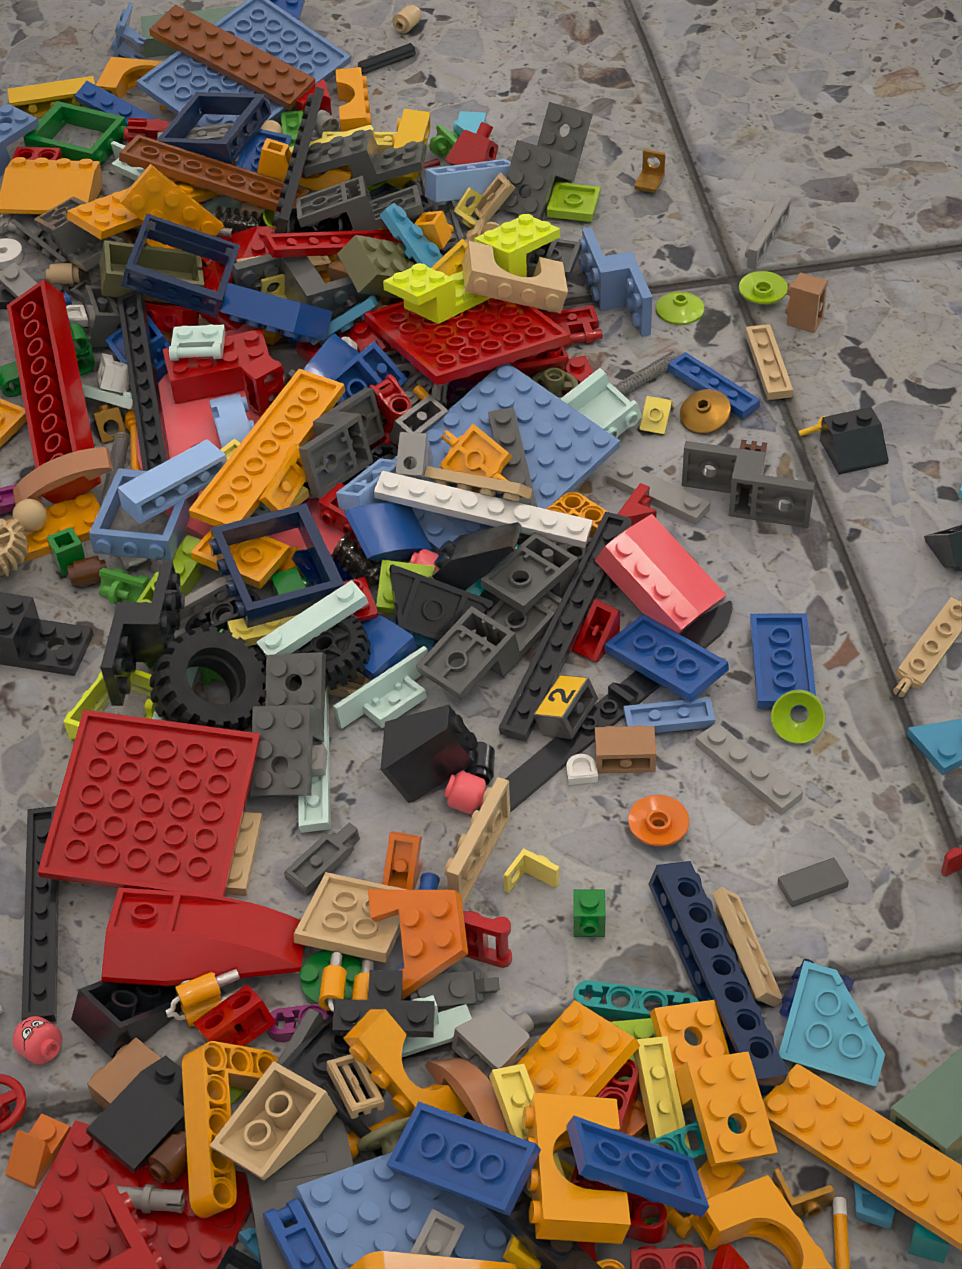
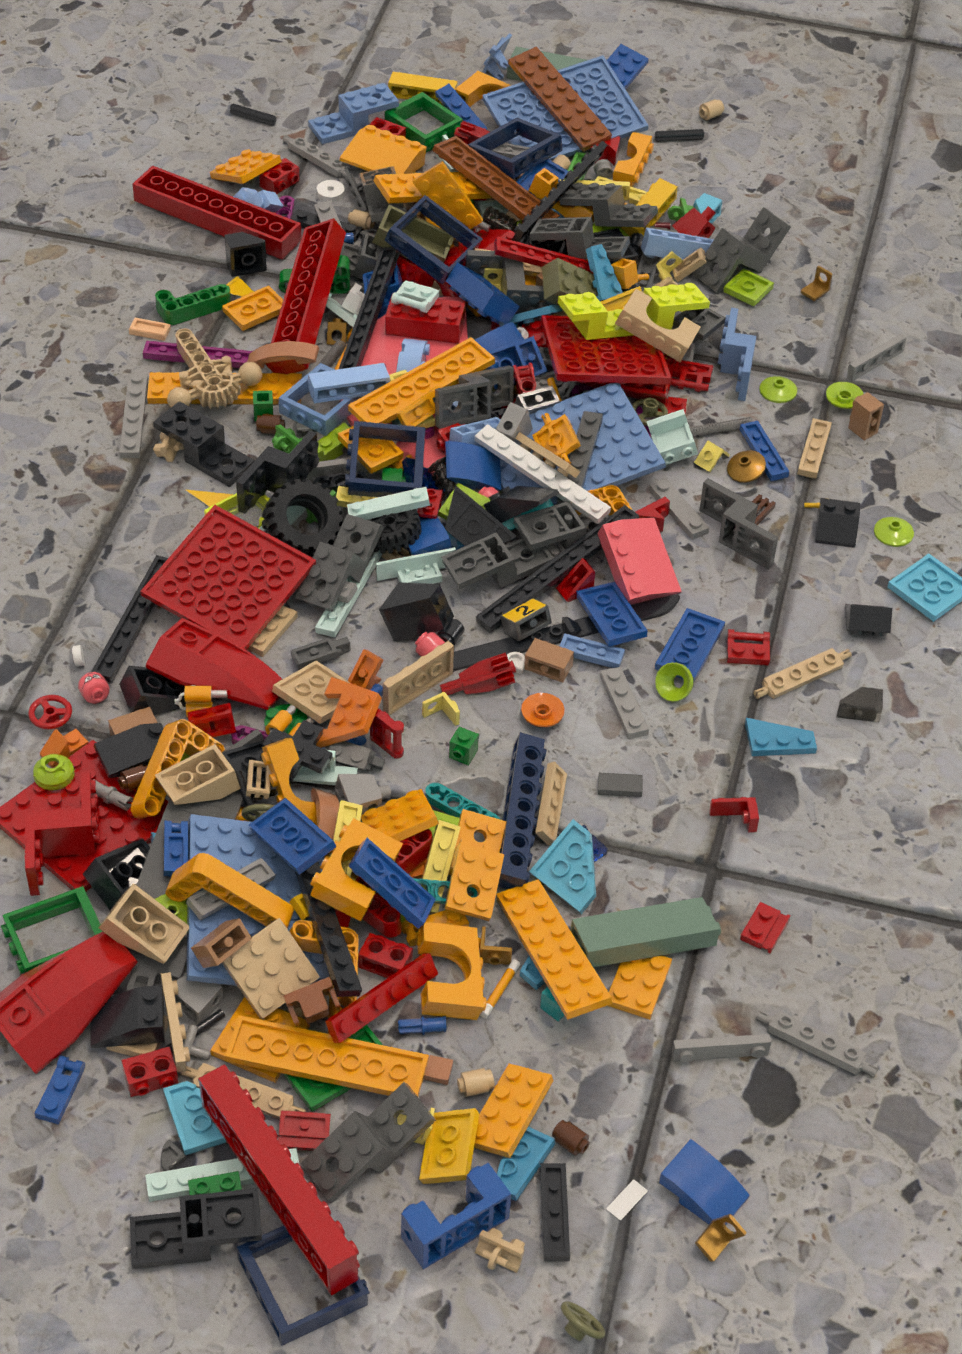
camera: 20 degrees right, 0 degrees up
(49, 1210) = (55, 777): none -> lime piece
(58, 701) = (209, 498): none -> yellow sticker
(77, 315) = (350, 250): white tile -> none
(262, 382) = (445, 336): red brick -> none
(557, 806) = (483, 676): none -> red piece
(853, 642) = (748, 652): none -> red plate
(918, 428) = (893, 531): none -> lime dish

